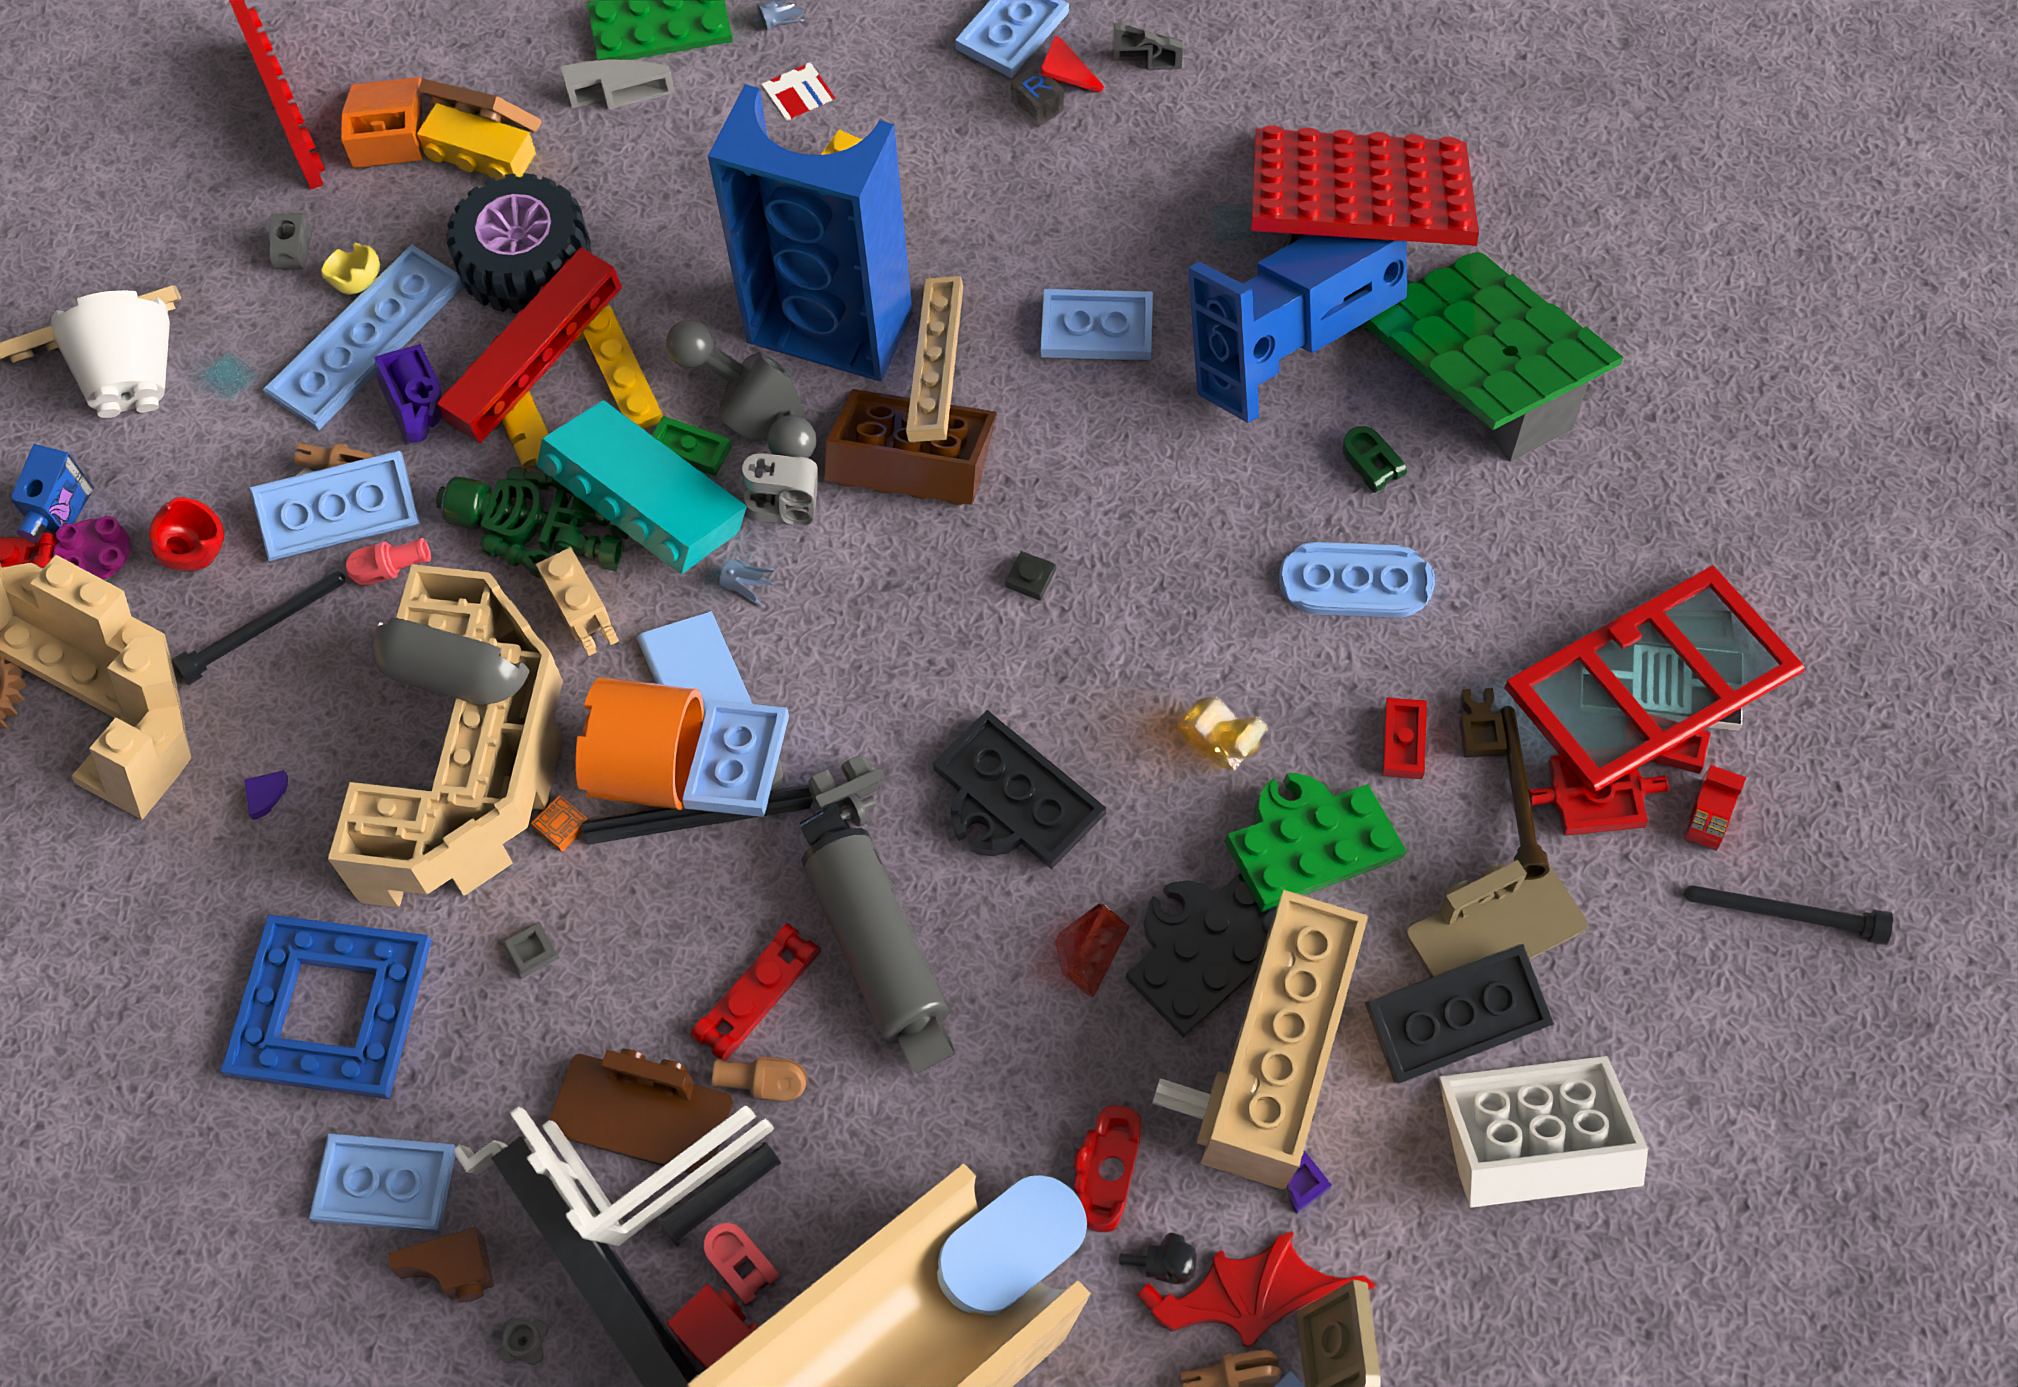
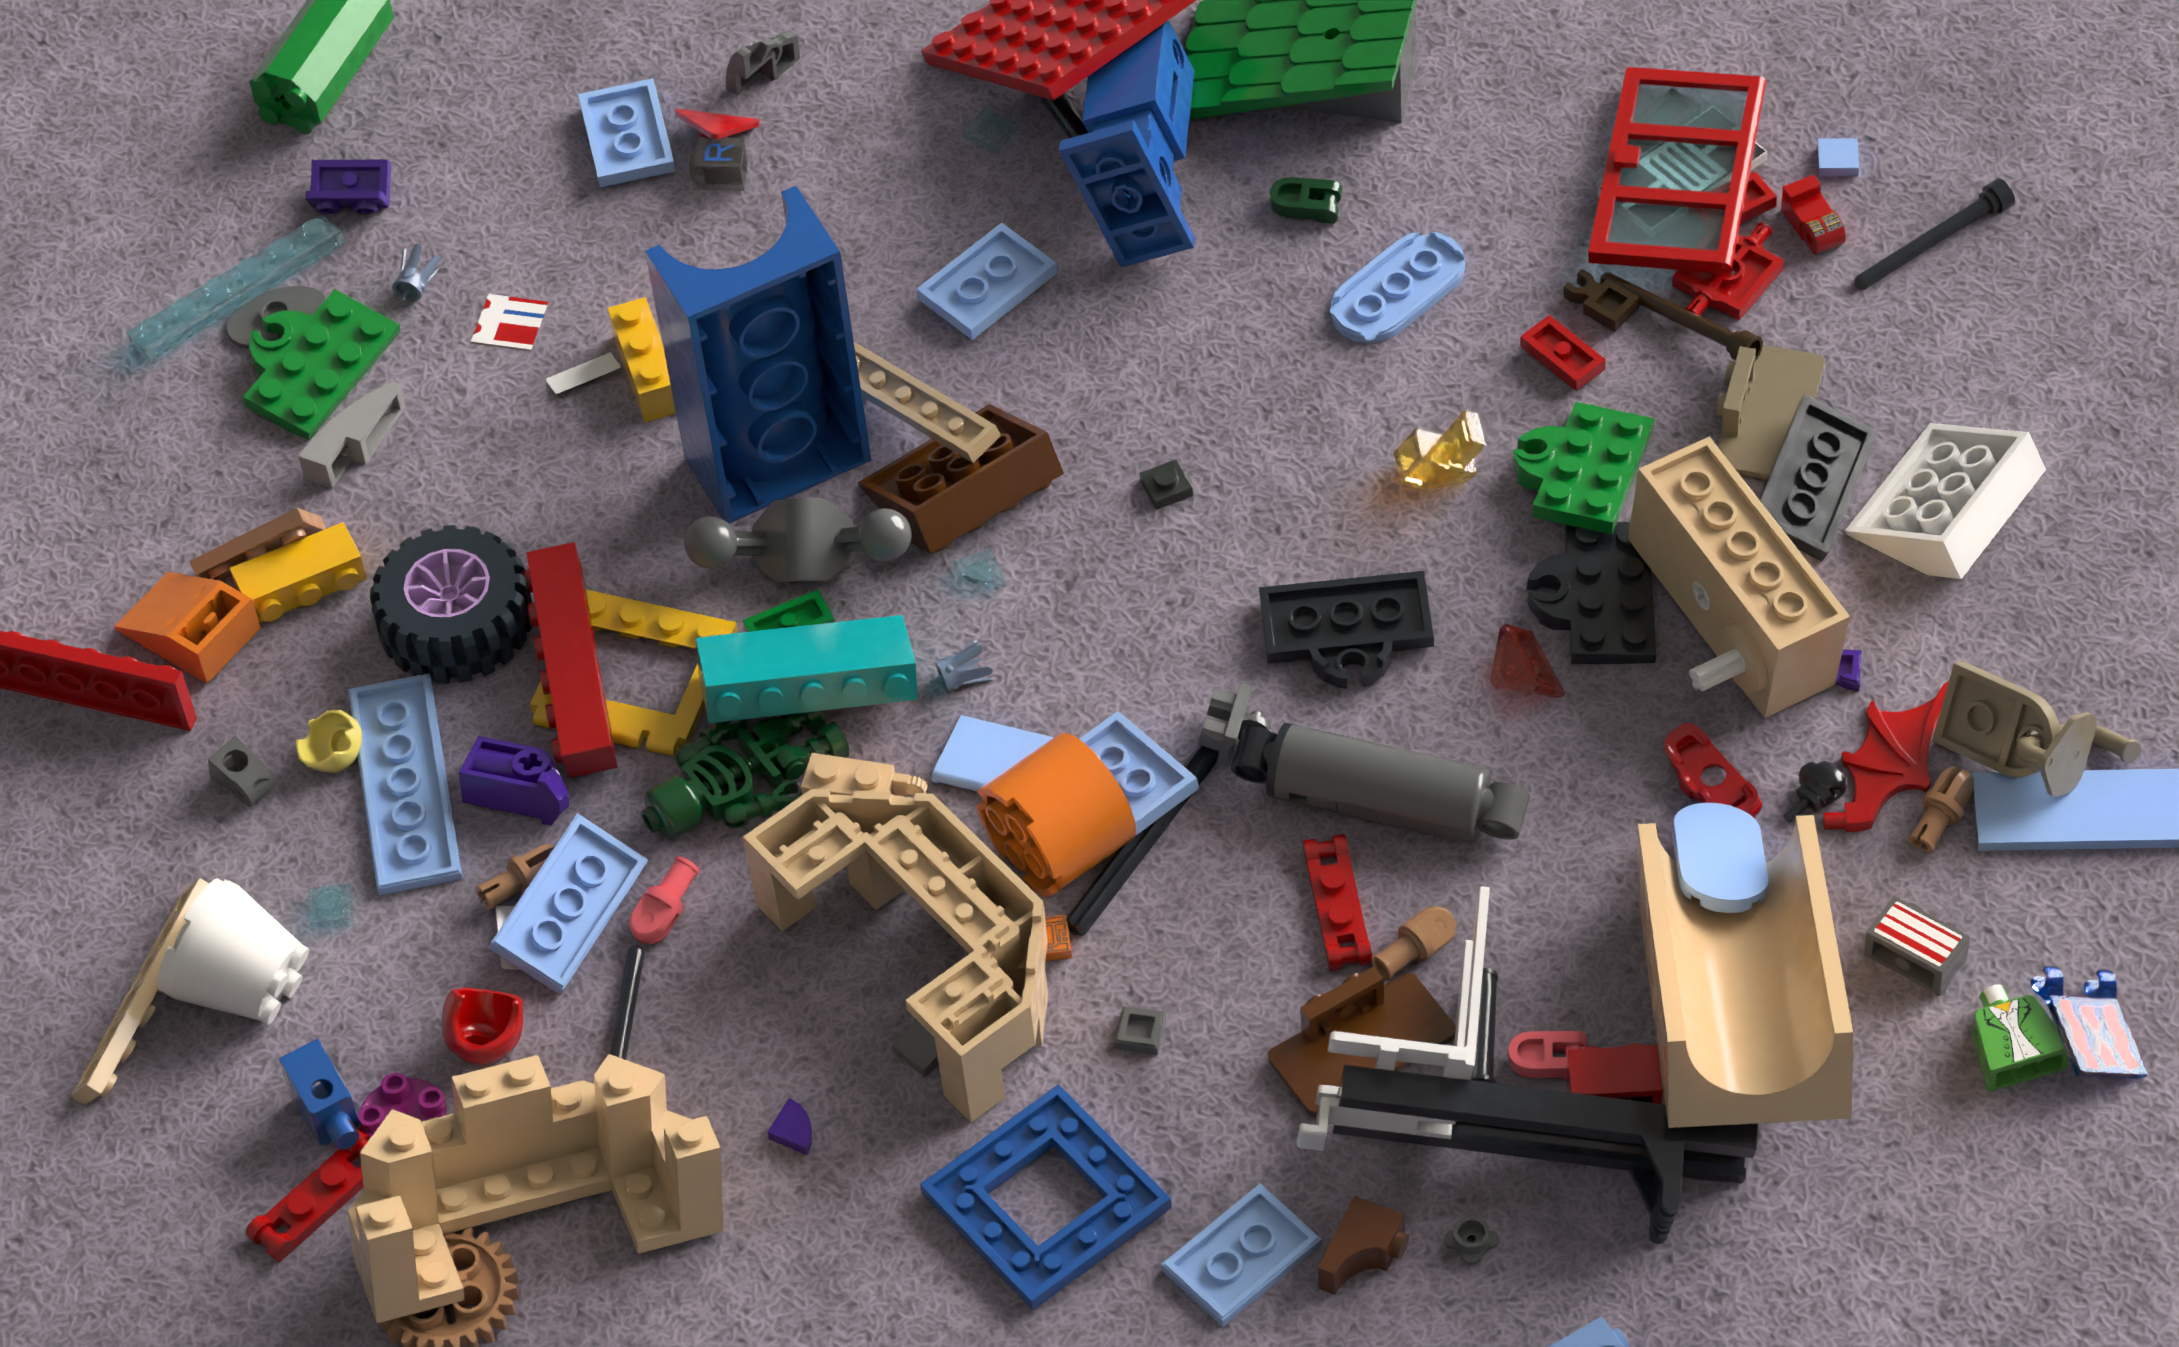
camera: 45 degrees left, 10 degrees down
(445, 662) = (866, 864): dark grey brick -> none
(791, 487) = (920, 580): light grey piece -> none
(846, 522) = (980, 569): none -> clear light blue tile
(1793, 779) = (1838, 157): none -> light blue tile

